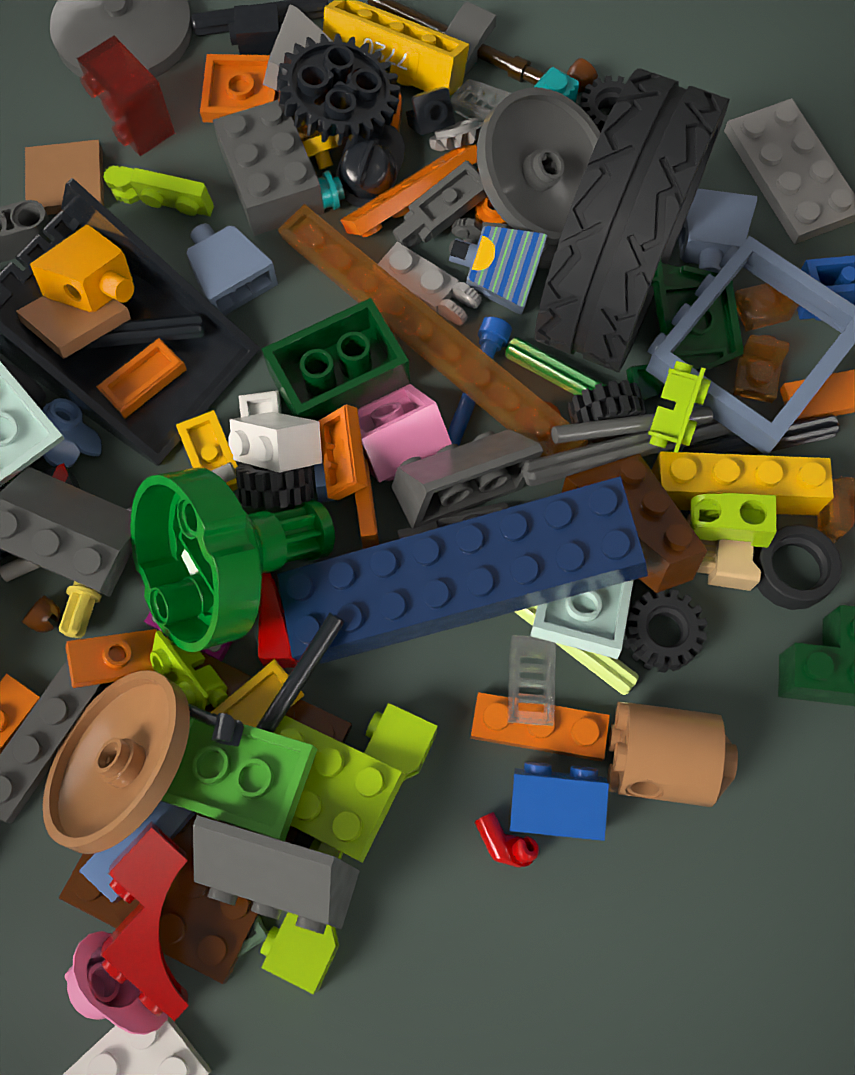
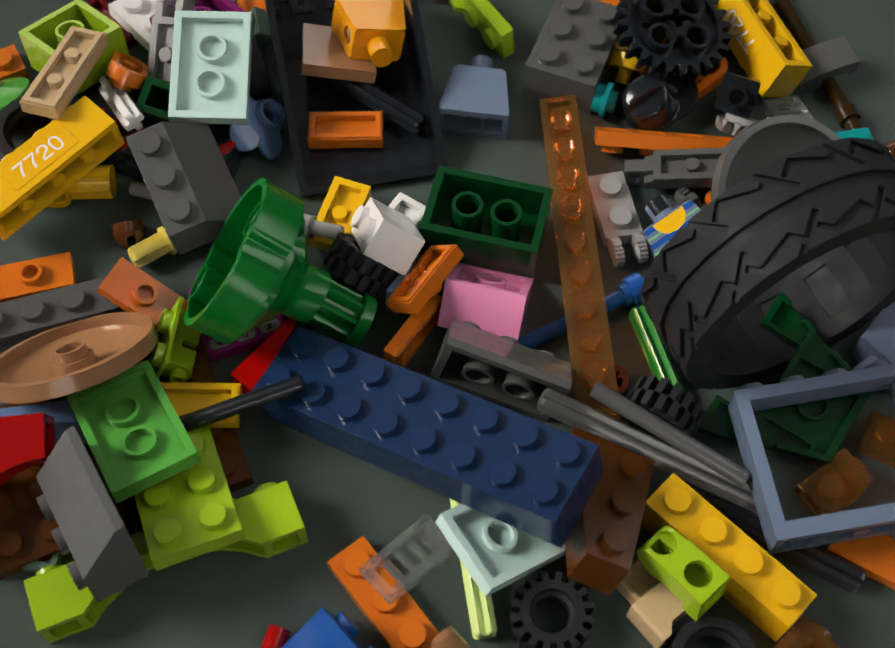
camera: 40 degrees right, 10 degrees down
(227, 729) = (153, 392): black hand -> none
(685, 391) = (730, 440): lime hinge -> none

